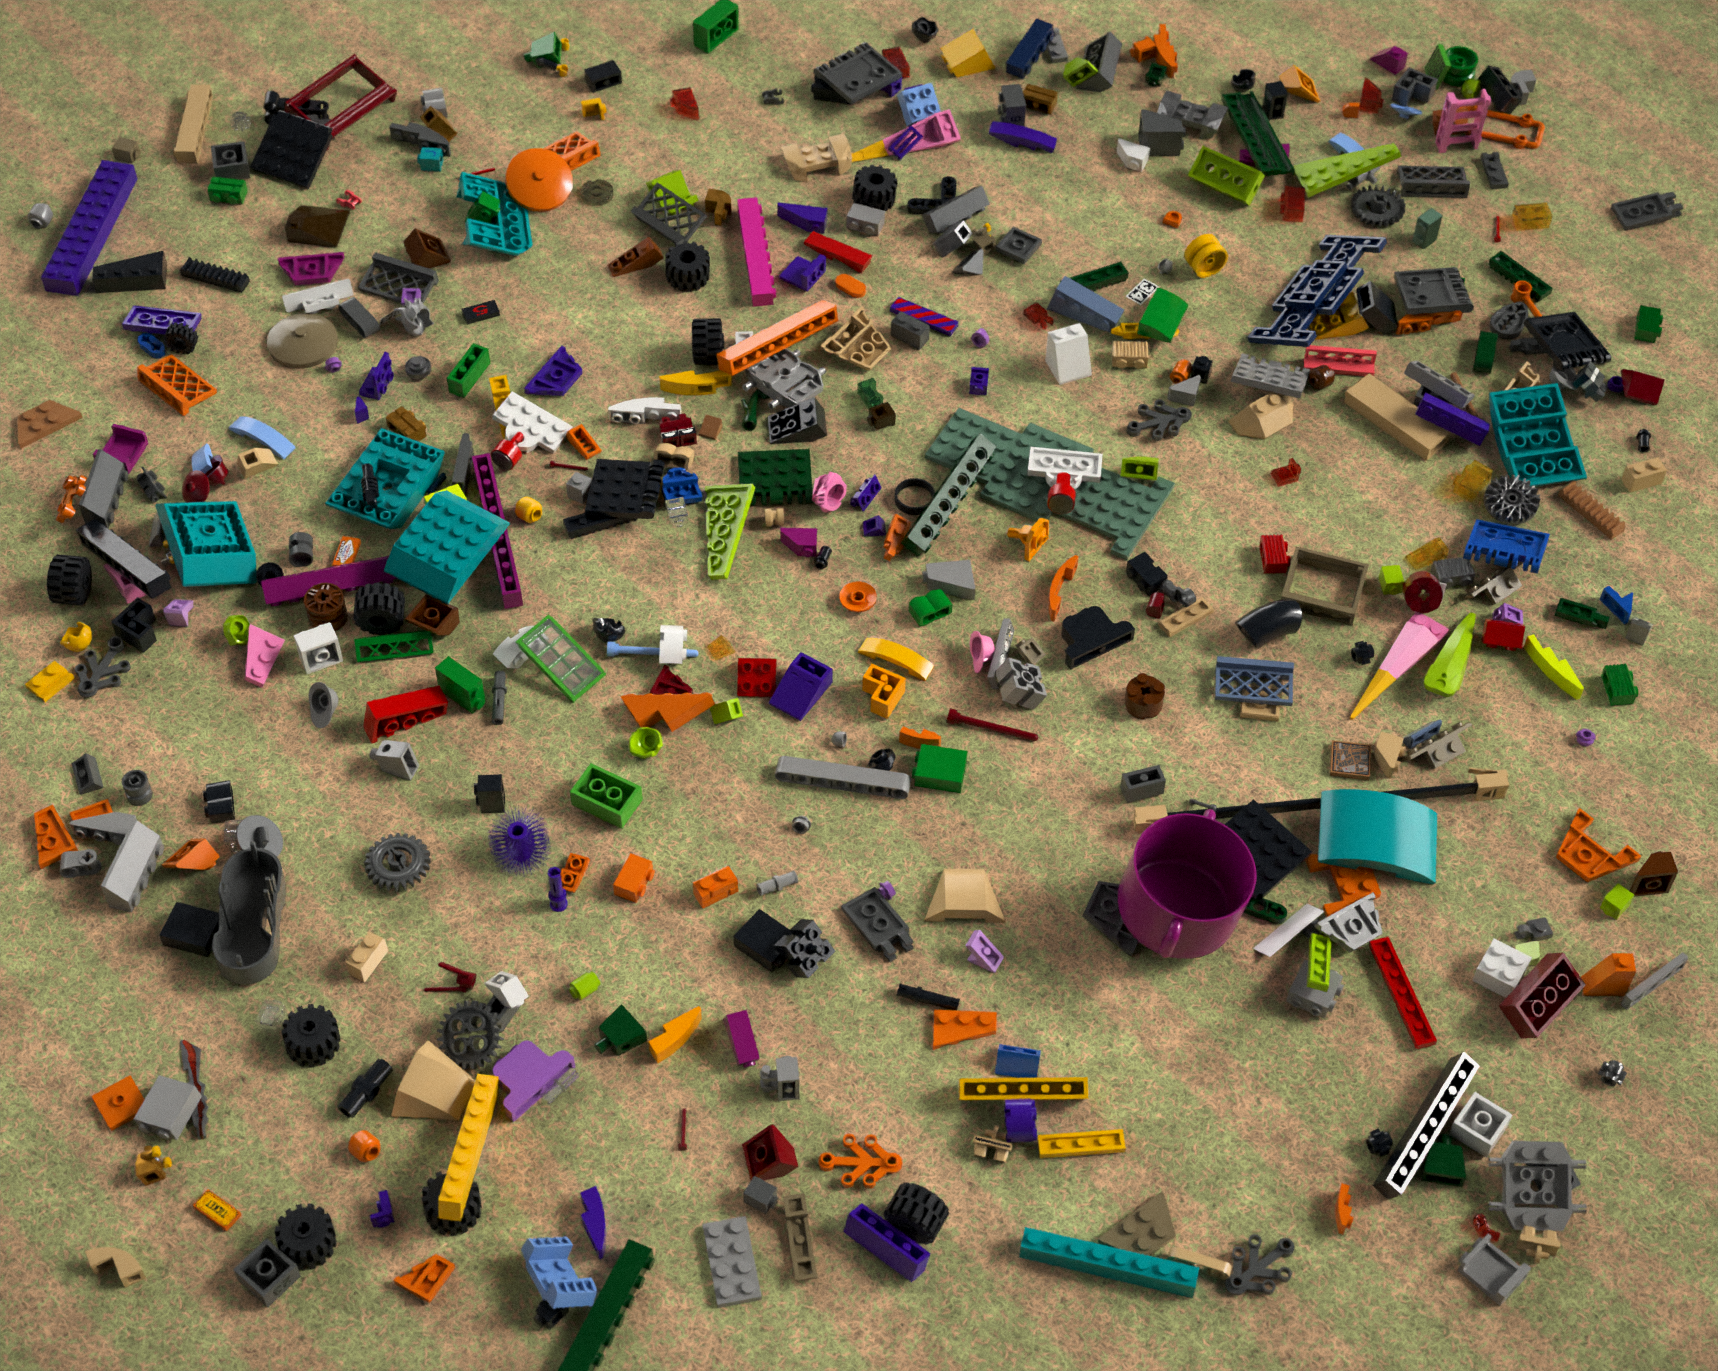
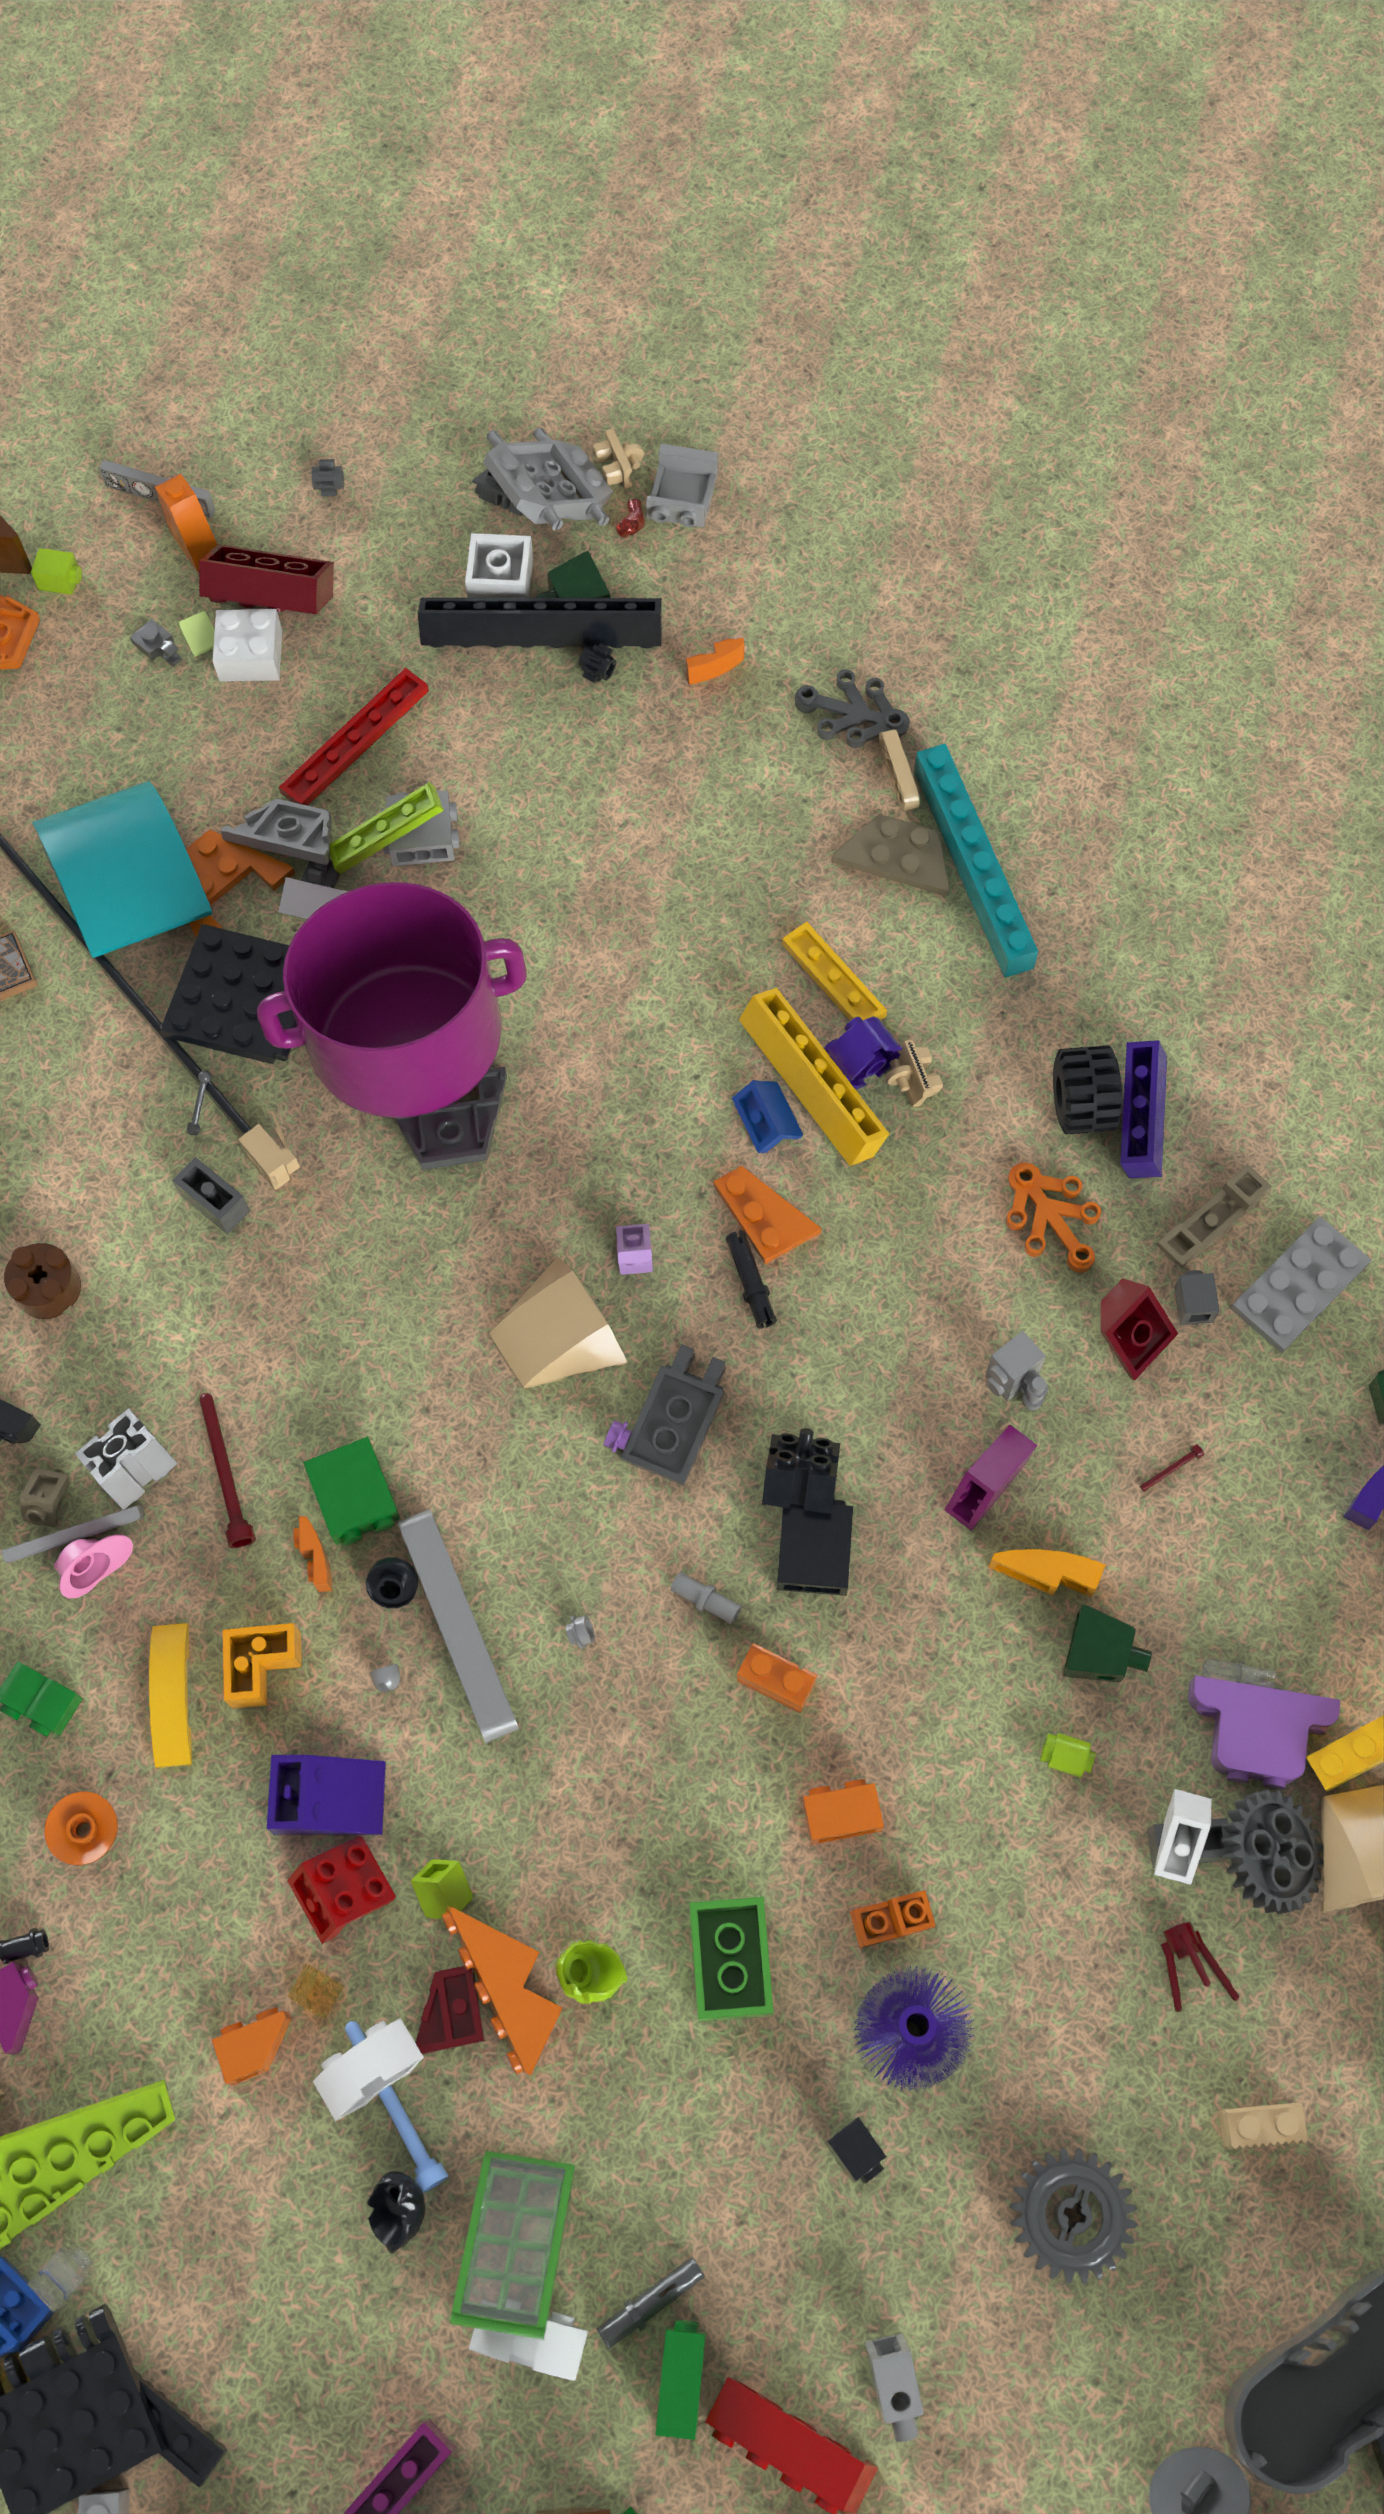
camera: 120 degrees left, 15 degrees up
(557, 893) = (959, 1907): dark purple pin -> none
(714, 612) = (250, 2048): none -> orange slope

